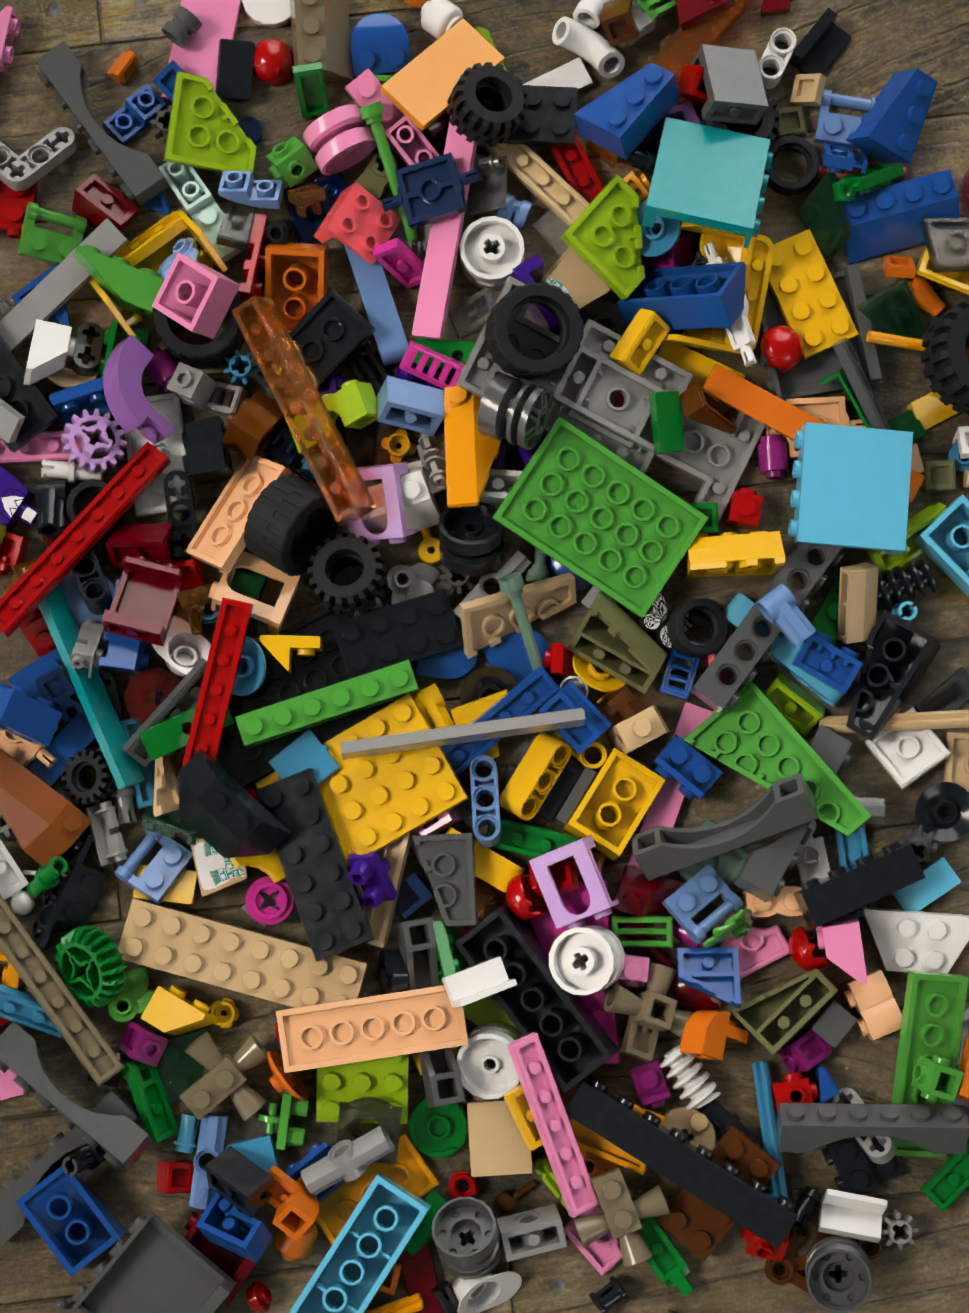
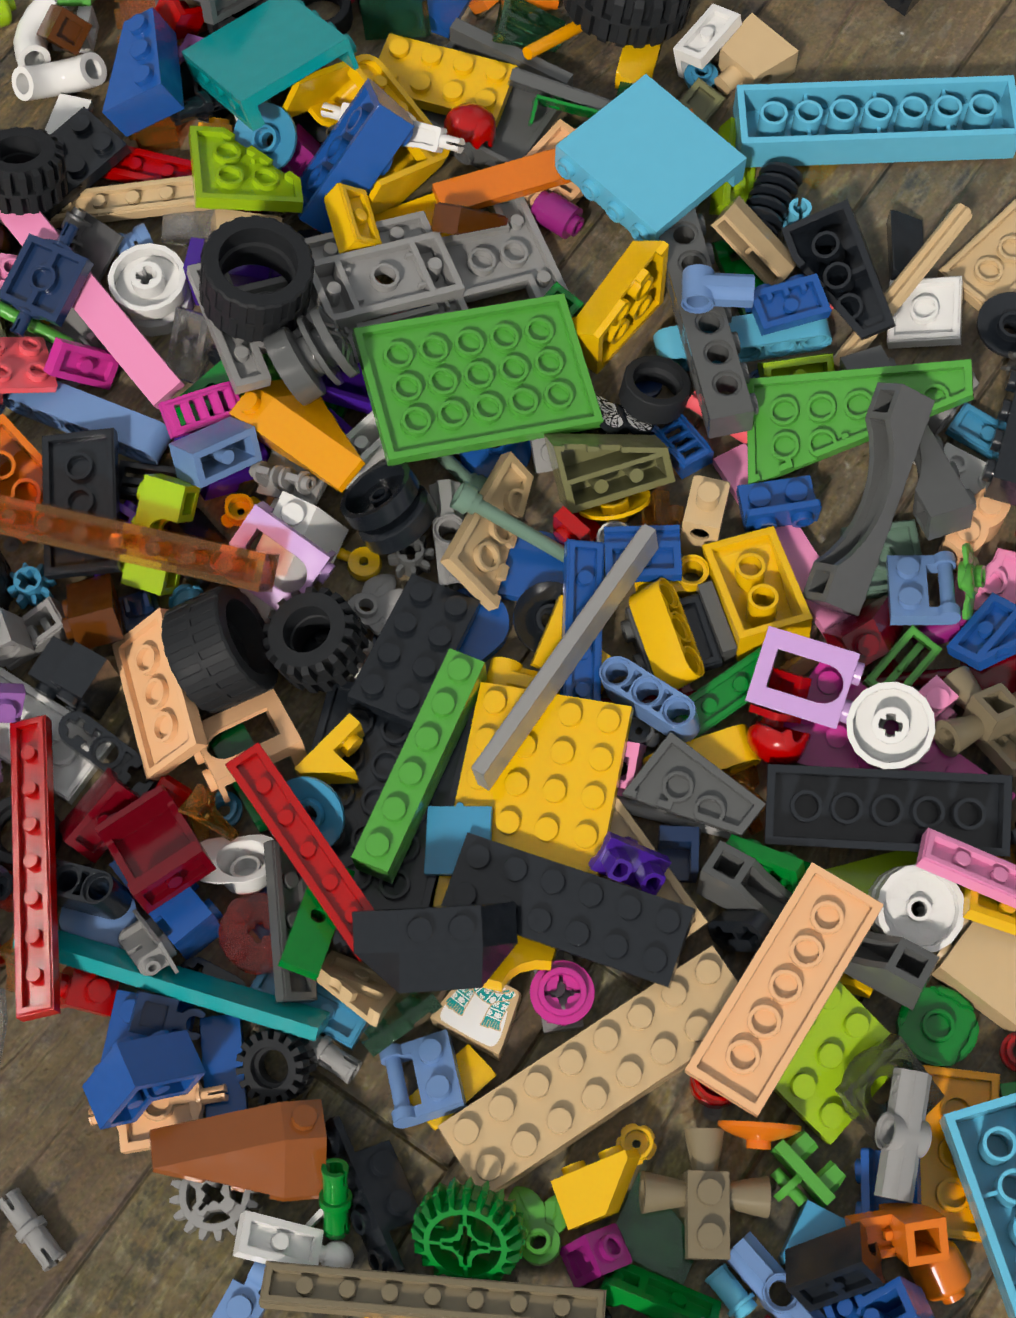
camera: 45 degrees left, 15 degrees down
(106, 833) = (360, 1107): light grey hinge -> none
(477, 982) = (827, 843): white panel -> none
(666, 422) = (444, 256): green slope -> none
(744, 509) = (583, 270): red brick -> none

